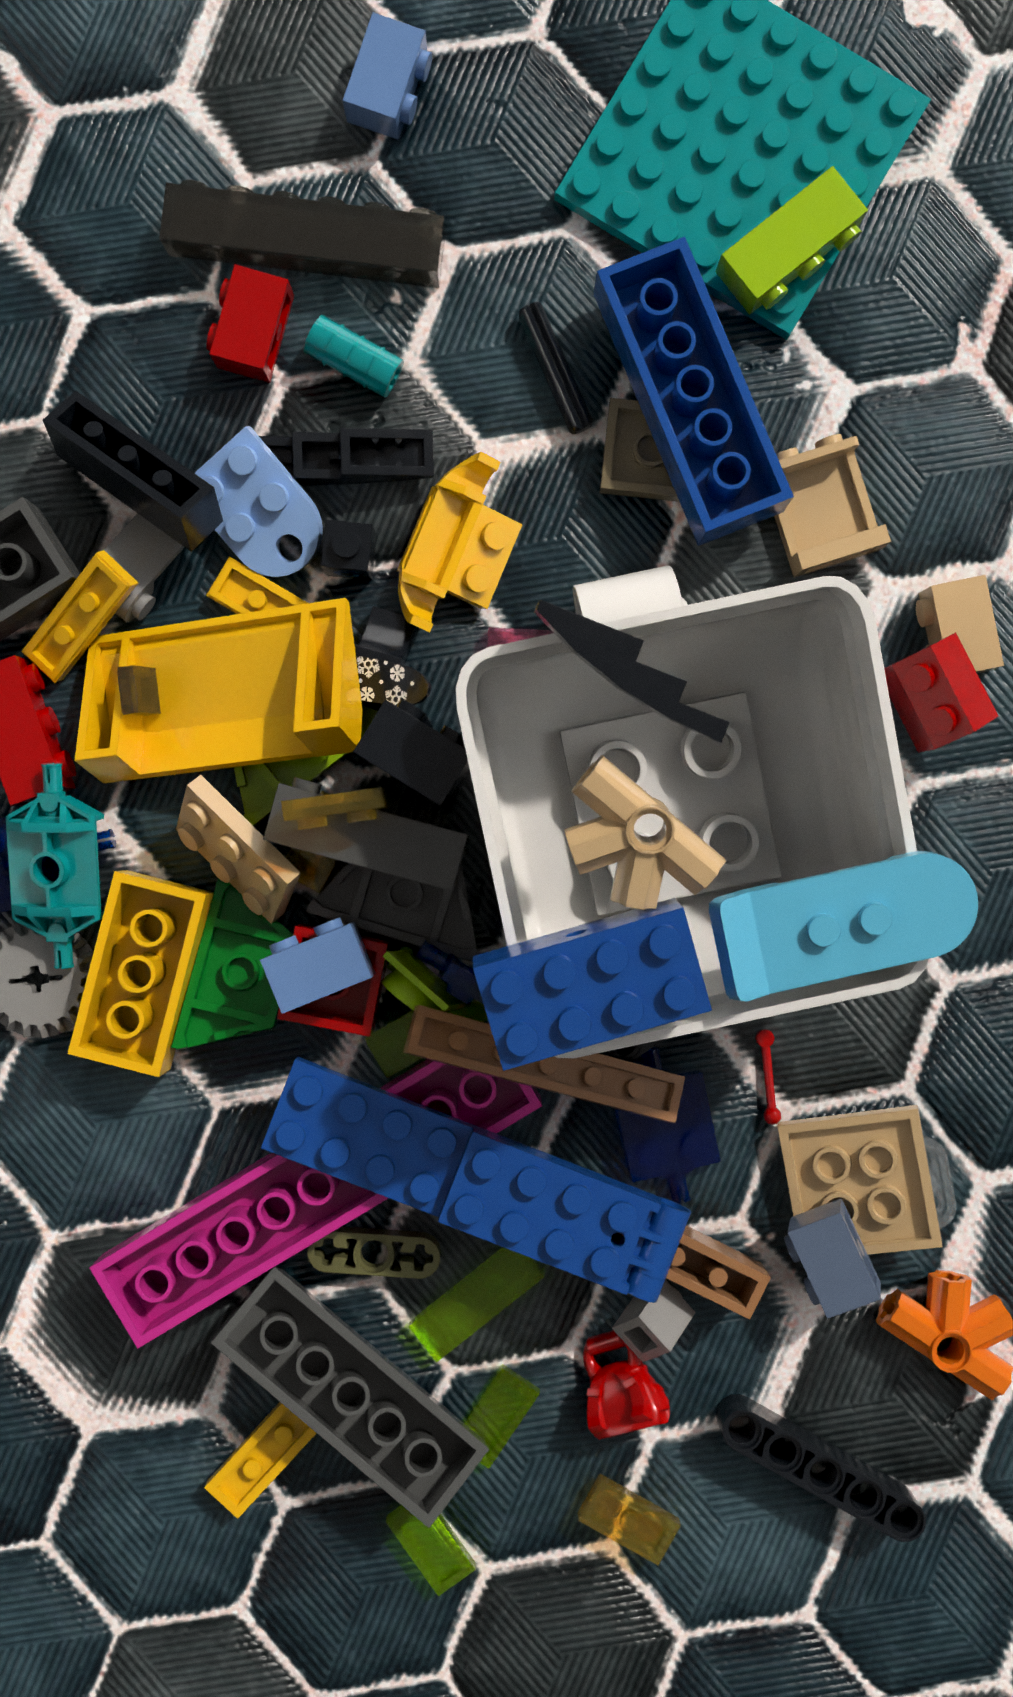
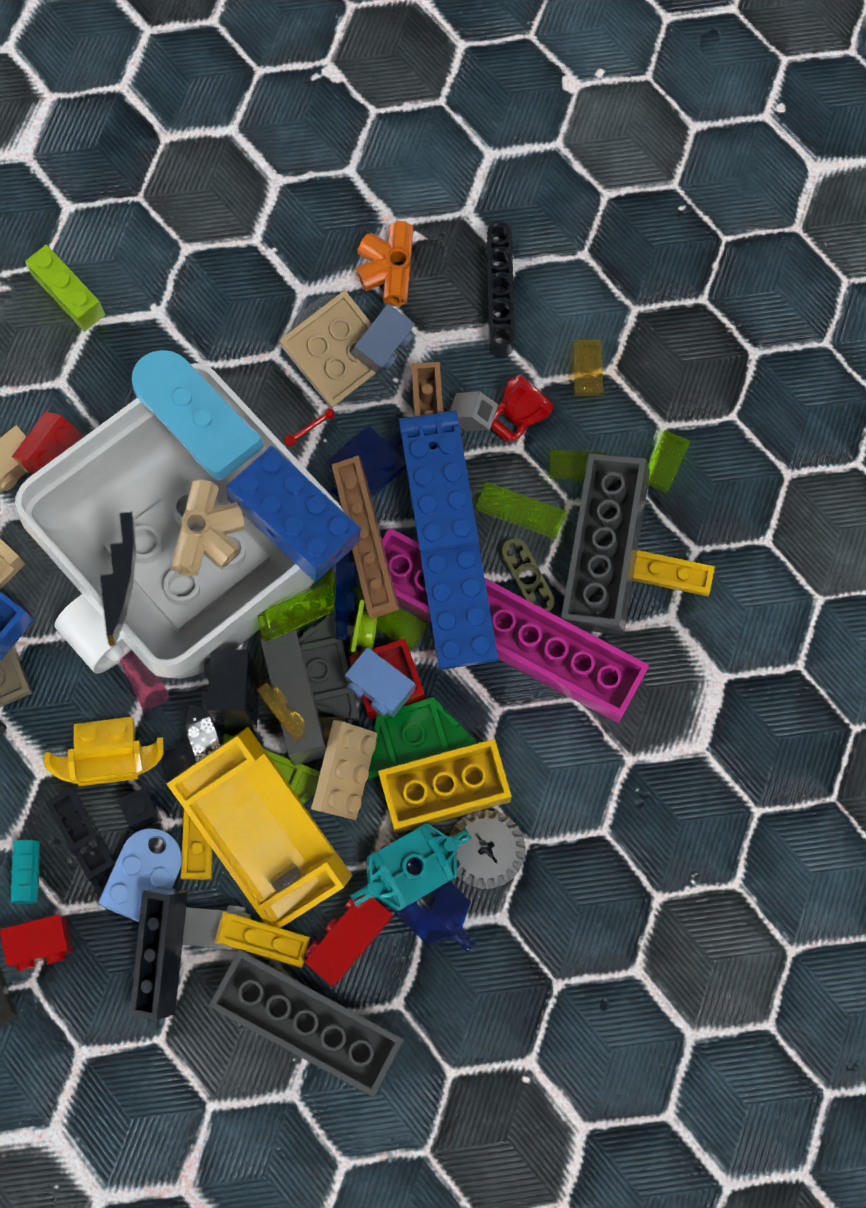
camera: 120 degrees left, 15 degrees down
(476, 894) = (297, 610): none -> clear neon green tile

